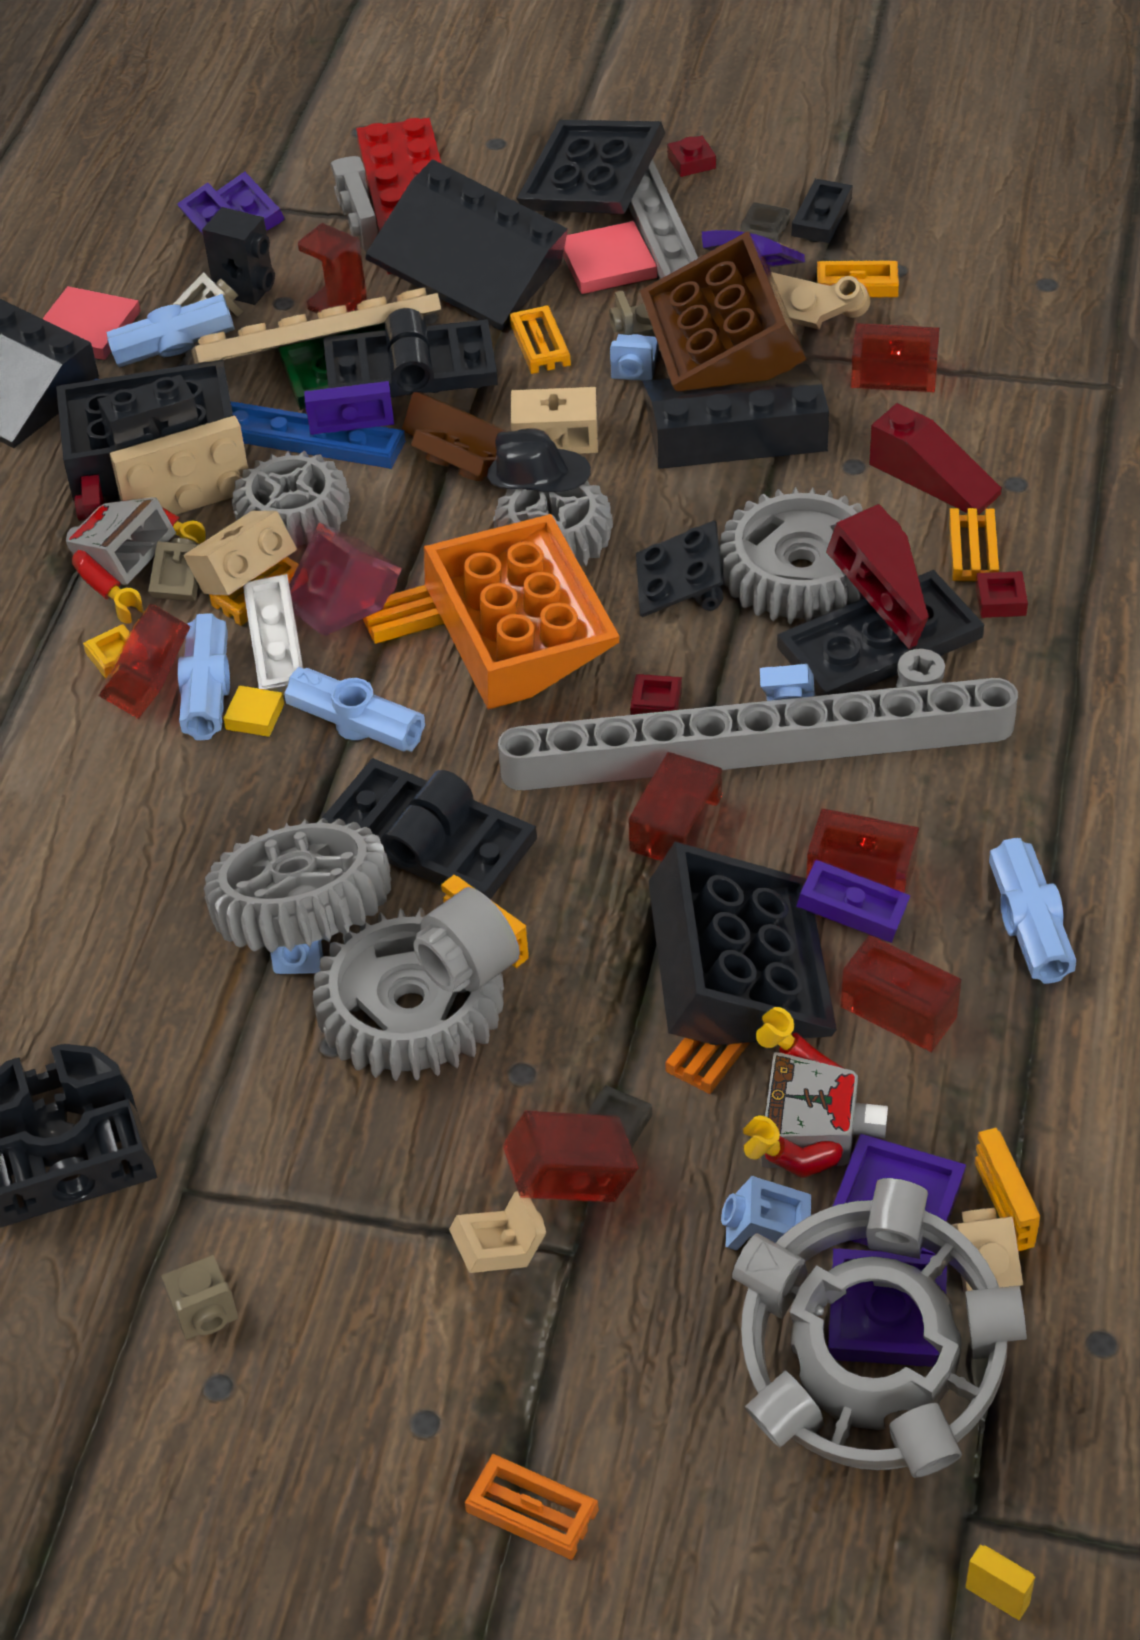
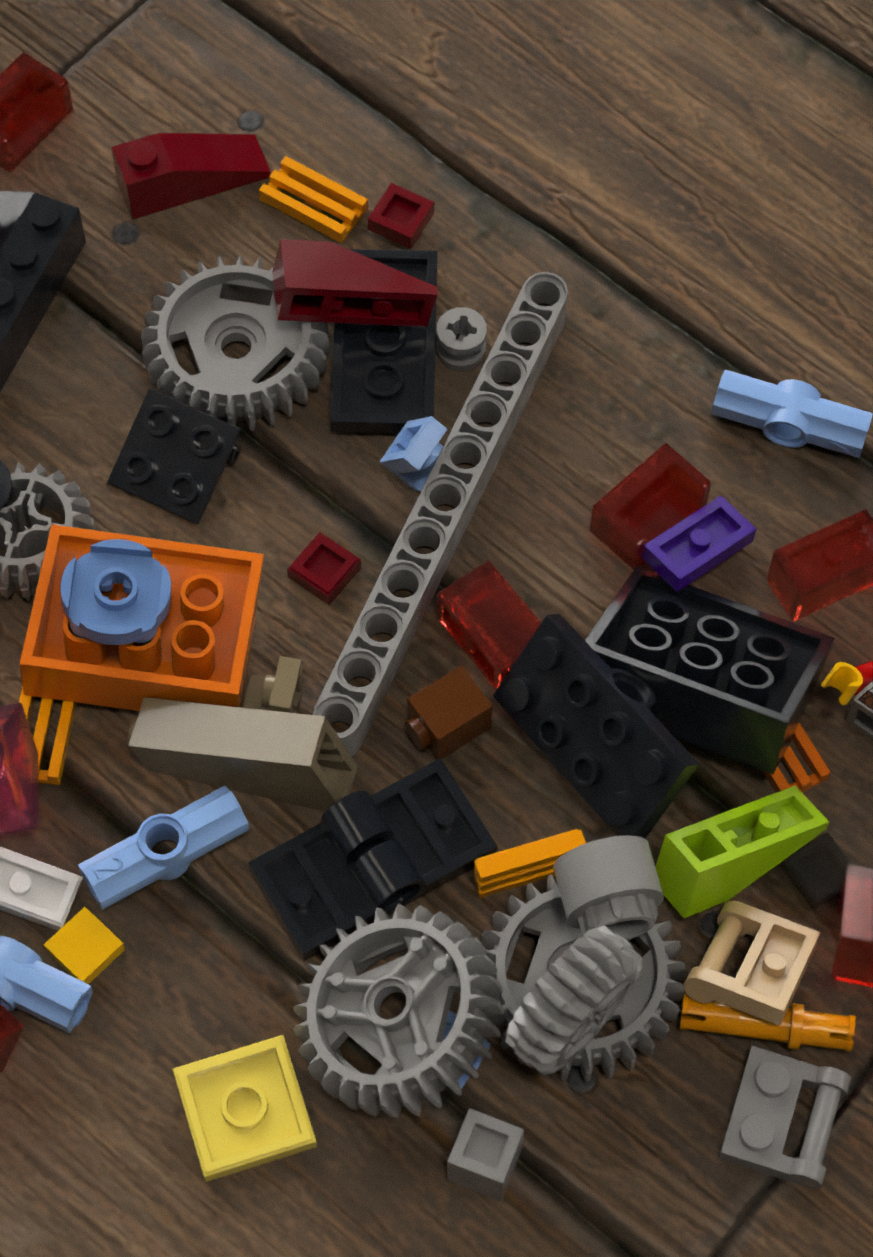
camera: 65 degrees left, 15 degrees up
(178, 853) = (244, 1108): none -> light yellow tile
(219, 999) = (485, 1154): none -> light grey panel
(348, 953) = (573, 1000): none -> light grey gear
(372, 1174) = (765, 1114): none -> light grey plate
(455, 1150) = (796, 1028): none -> light orange pin
(460, 715) = (246, 749): none -> dark tan slope
(484, 1093) = (769, 969): none -> tan plate
(508, 582) = (123, 620): none -> medium blue plate
(517, 706) = (278, 691): none -> dark tan bracket
(579, 816) = (448, 714): none -> reddish brown brick
(583, 1040) = (734, 849): none -> lime slope
(618, 890) = (596, 728): none -> black plate

